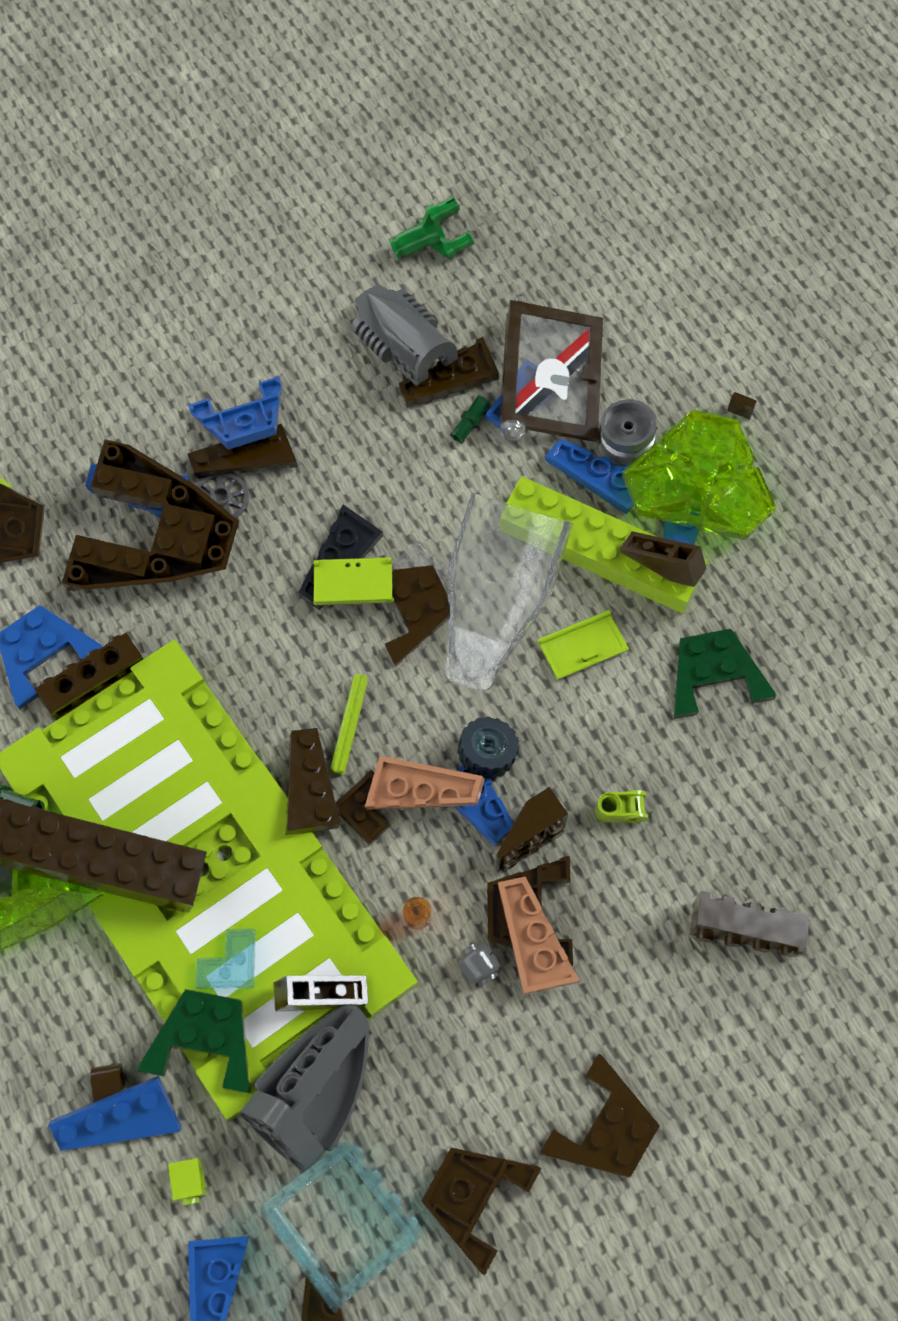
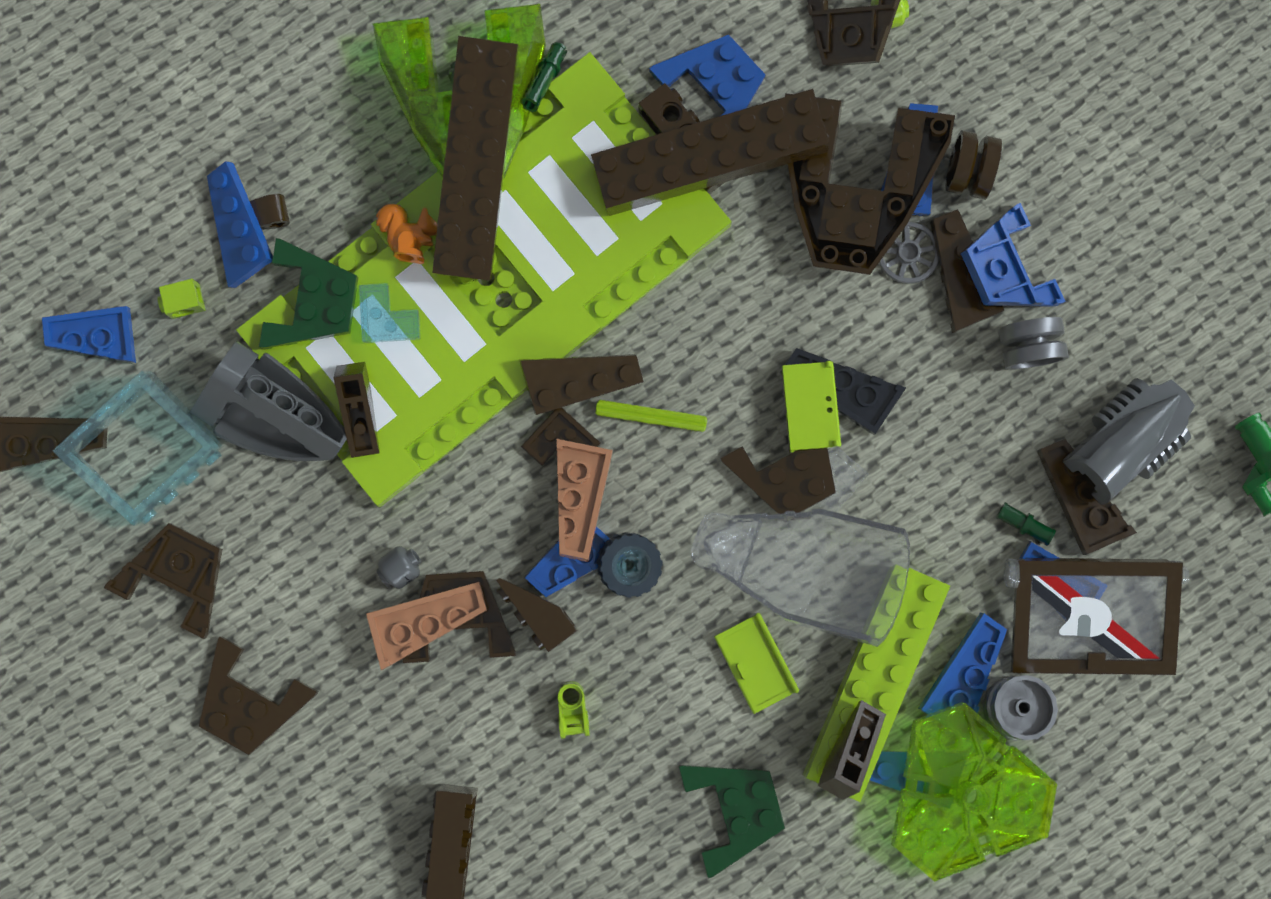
camera: 80 degrees right, 15 degrees up
(109, 648) = (711, 152): none -> dark brown brick
(151, 432) = (973, 164): none -> dark brown wheel
(153, 936) = (403, 237): none -> orange animal
(313, 398) = (1033, 343): none -> flat silver wheel
(419, 921) = (453, 507): clear orange brick -> none
(742, 405) = (1067, 842): dark brown tile -> none

